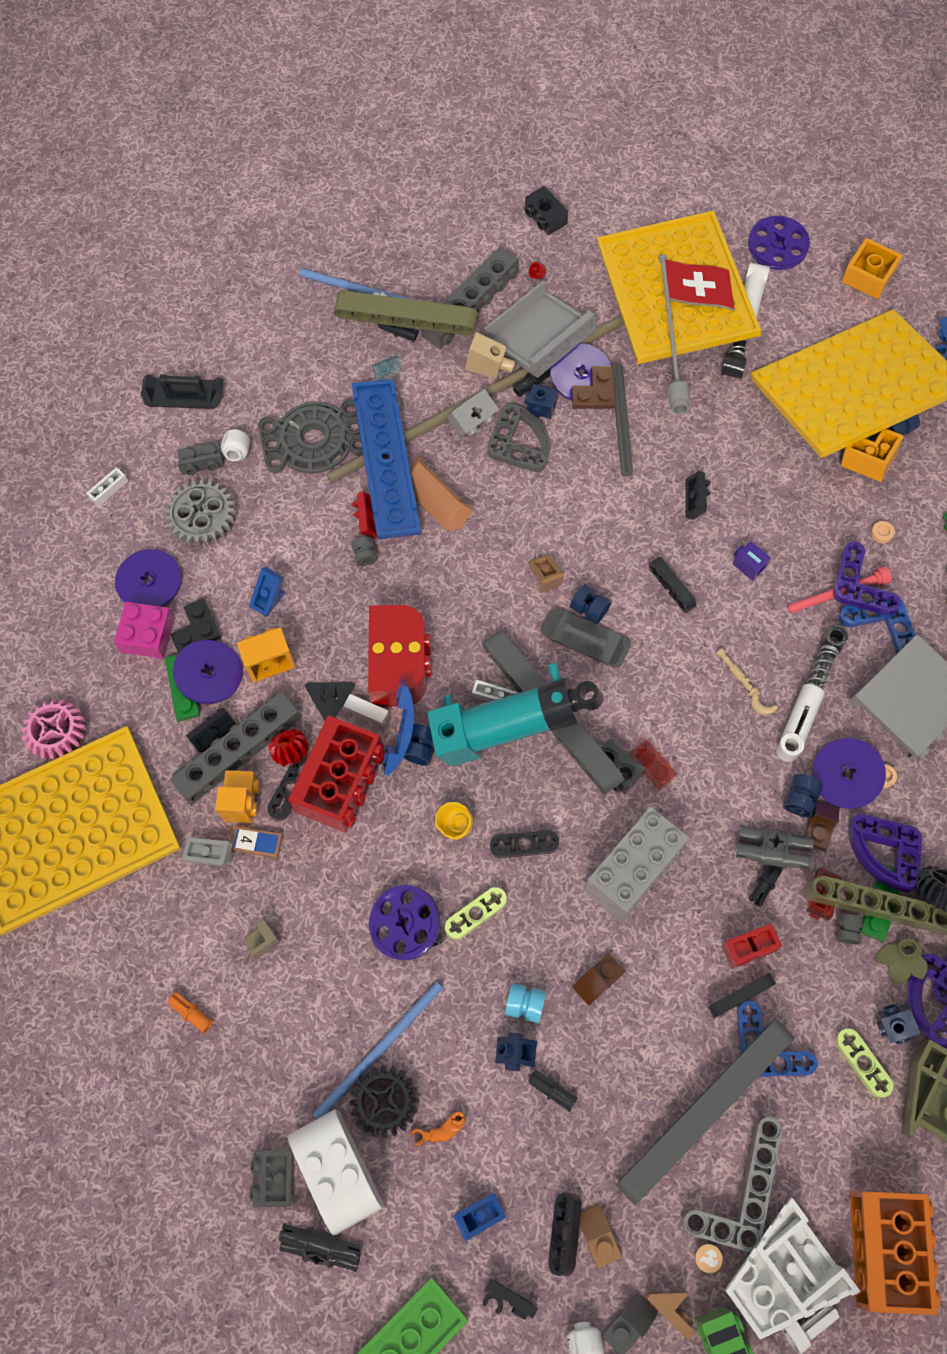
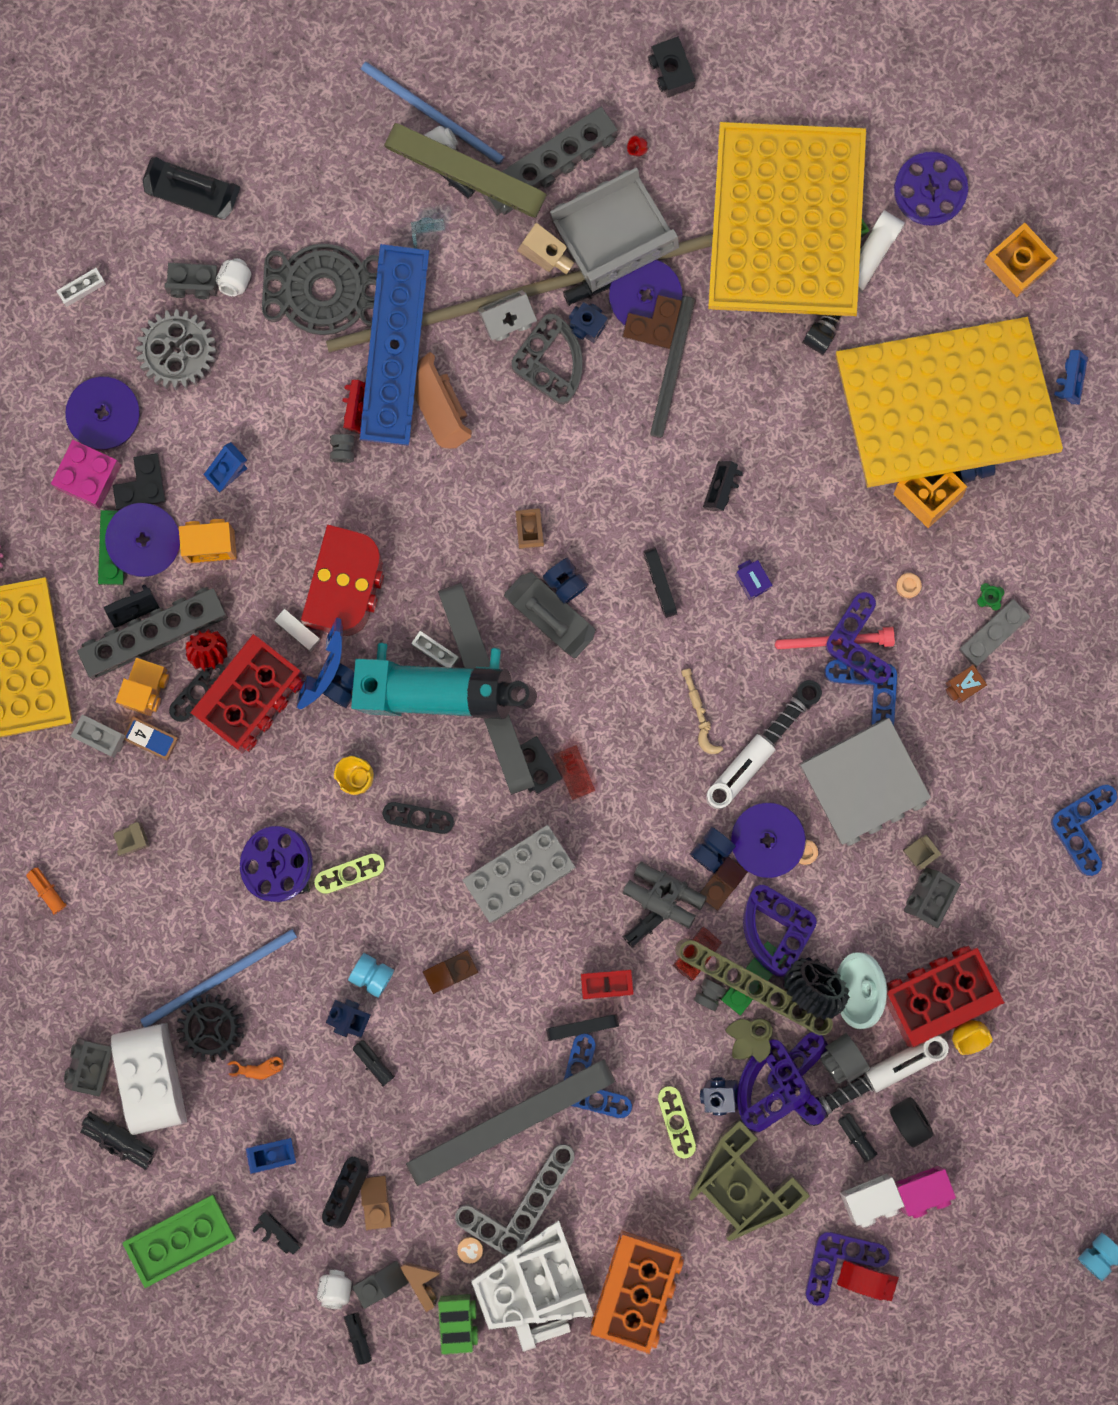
camera: 10 degrees right, 15 degrees up
(329, 696) = (263, 603): black piece -> none
(692, 286) = (804, 230): flag -> none

